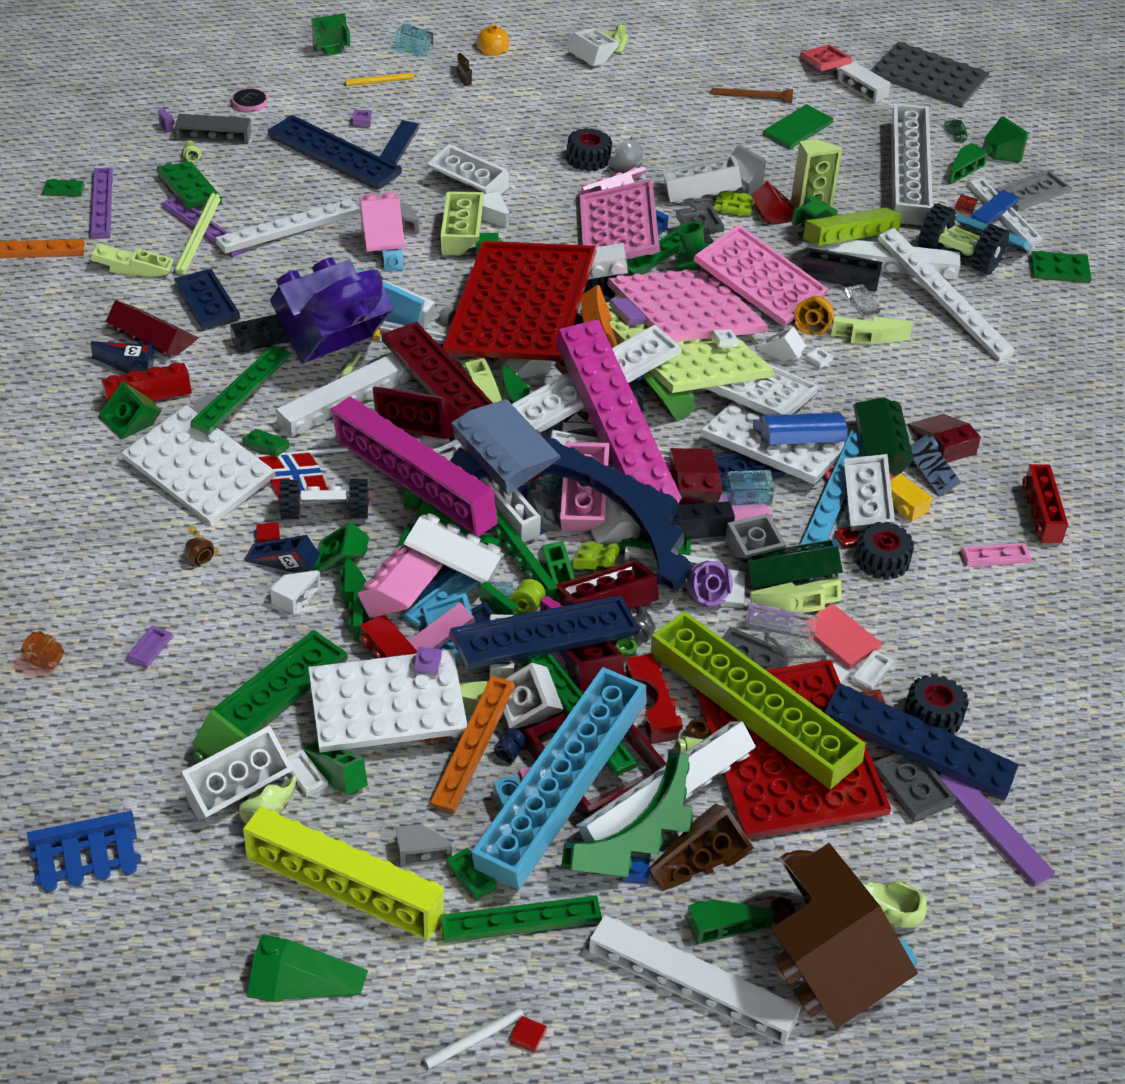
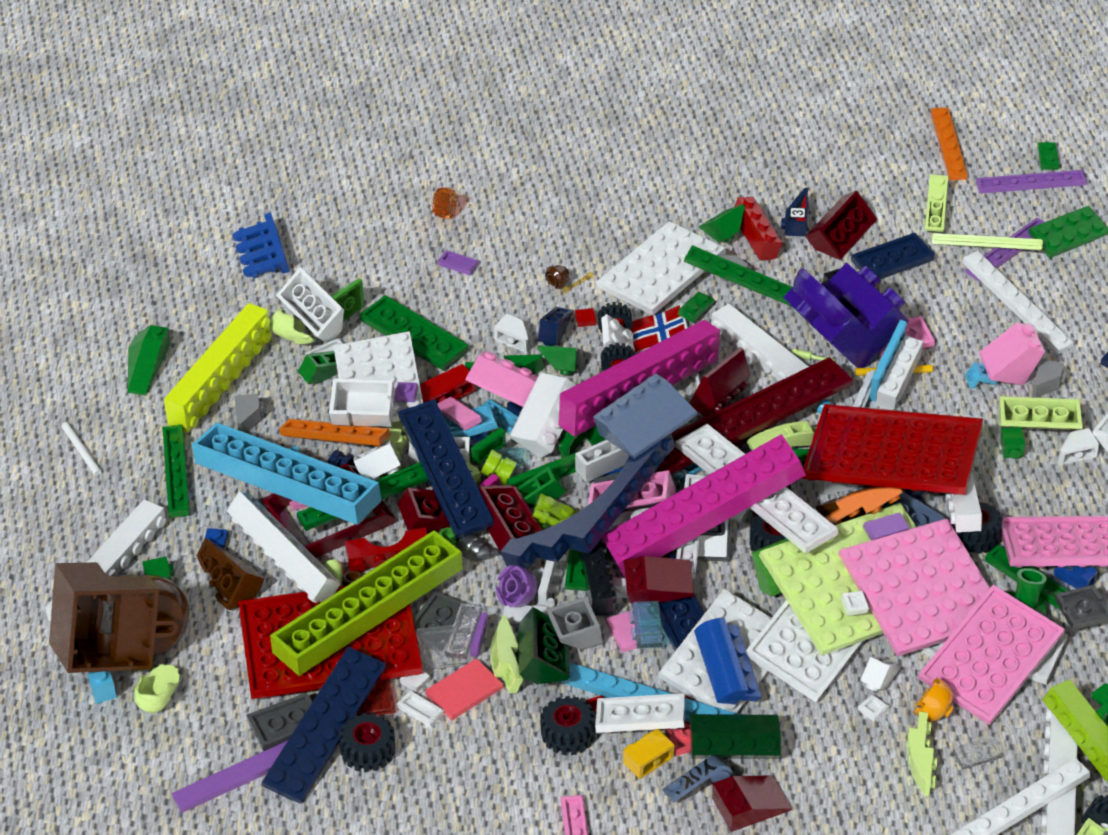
camera: 95 degrees right, 0 degrees up
(457, 698) = (362, 402): none -> white piece
(528, 1034) = (79, 476): red tile -> none
(642, 835) = (220, 514): green arch -> none
(842, 268) = (1022, 732): black brick -> none

